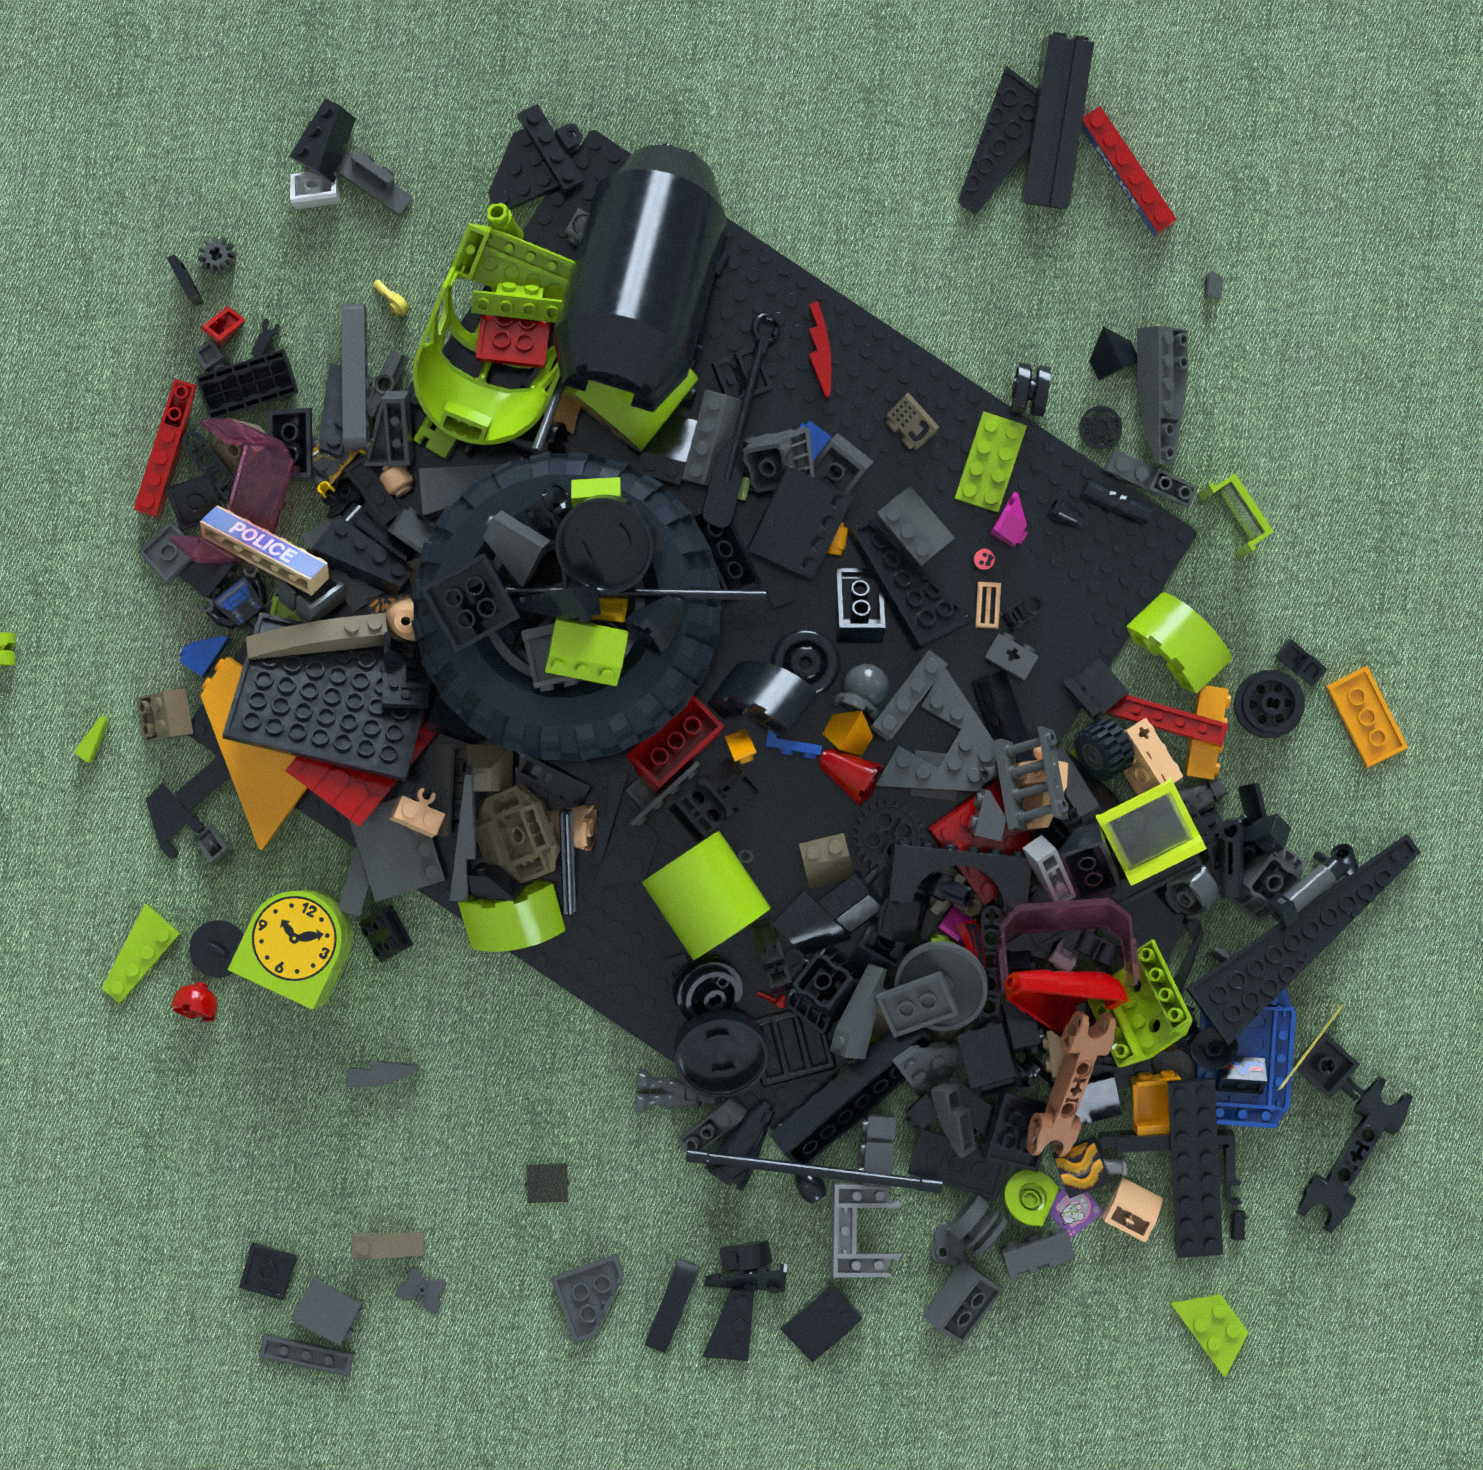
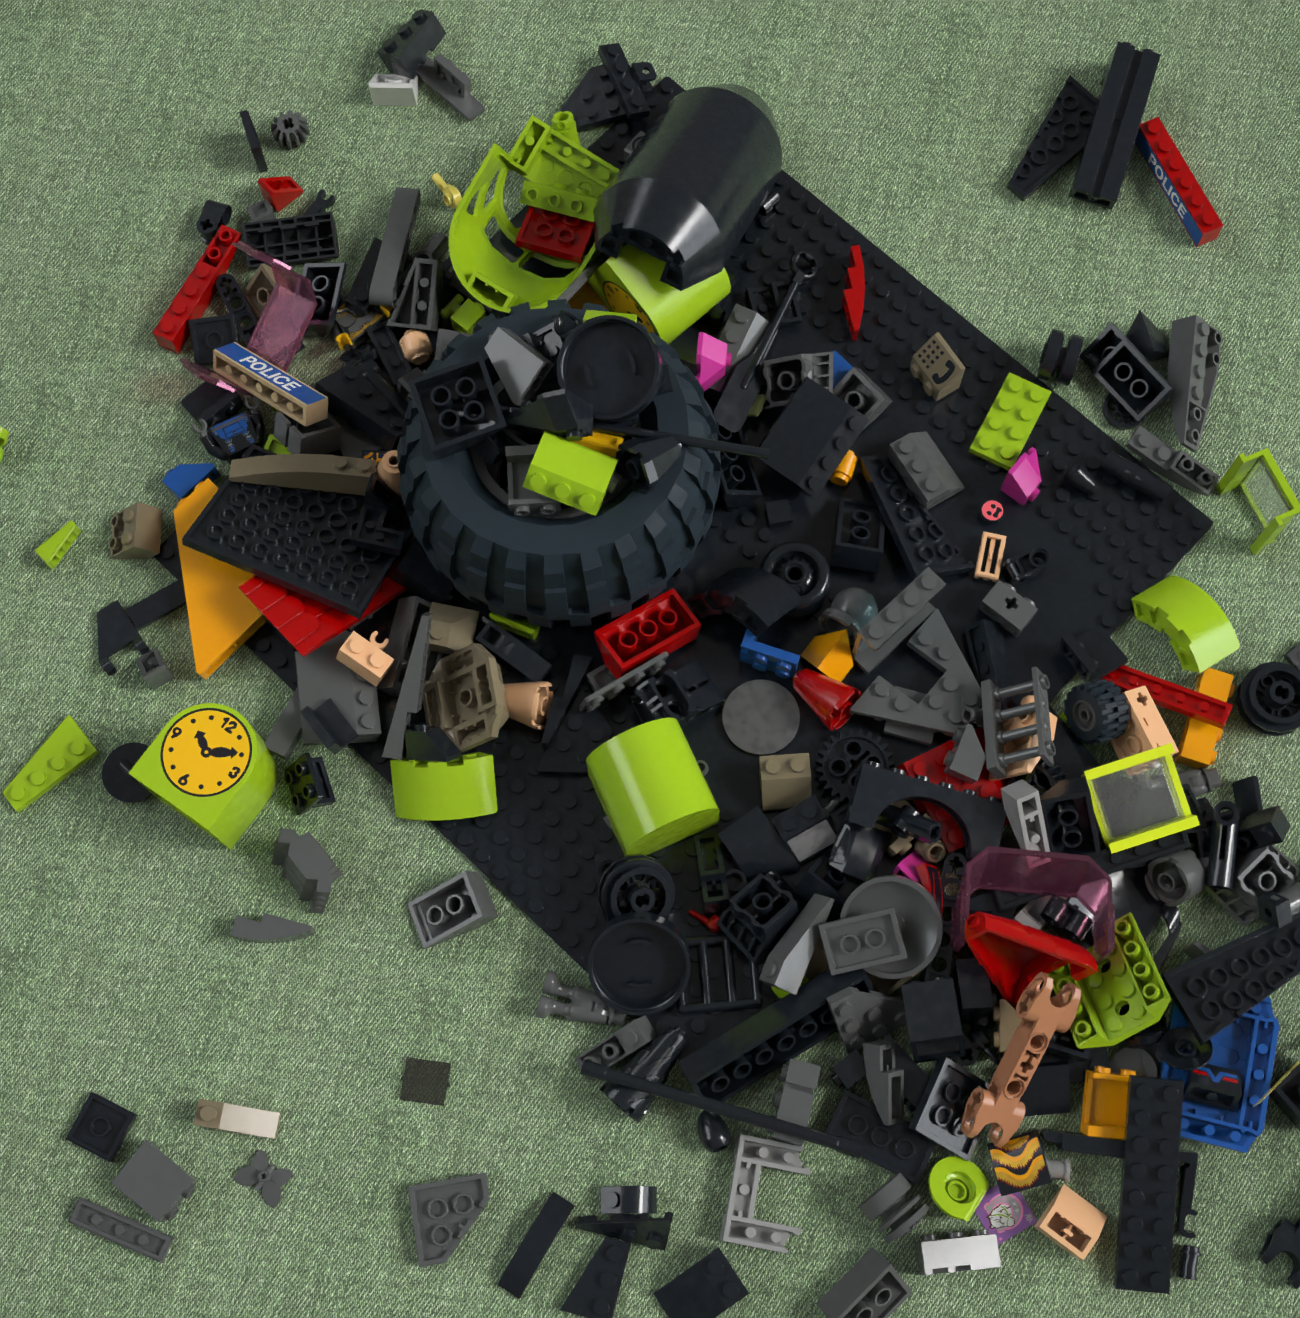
camera: 10 degrees right, 15 degrees down
(162, 368) = (211, 219): none -> black piece
(163, 555) = (177, 384): dark grey tile -> none
(195, 1002) = (93, 820): red cylinder -> none
(397, 883) = (330, 725): none -> black panel
(402, 1012) = (306, 867): none -> dark grey slope
(541, 1027) = (452, 908): none -> dark grey slope
(567, 861) = (512, 734): black axle -> none
(691, 463) = (711, 360): none -> dark pink slope
(741, 746) = (715, 651): light orange slope -> none
(794, 798) = (761, 717): none -> flat silver sticker
(953, 1248) = (861, 1228): dark grey plate -> none
(1096, 395) = (1126, 373): none -> black slope
(1213, 286) = (1251, 296): dark grey slope -> none

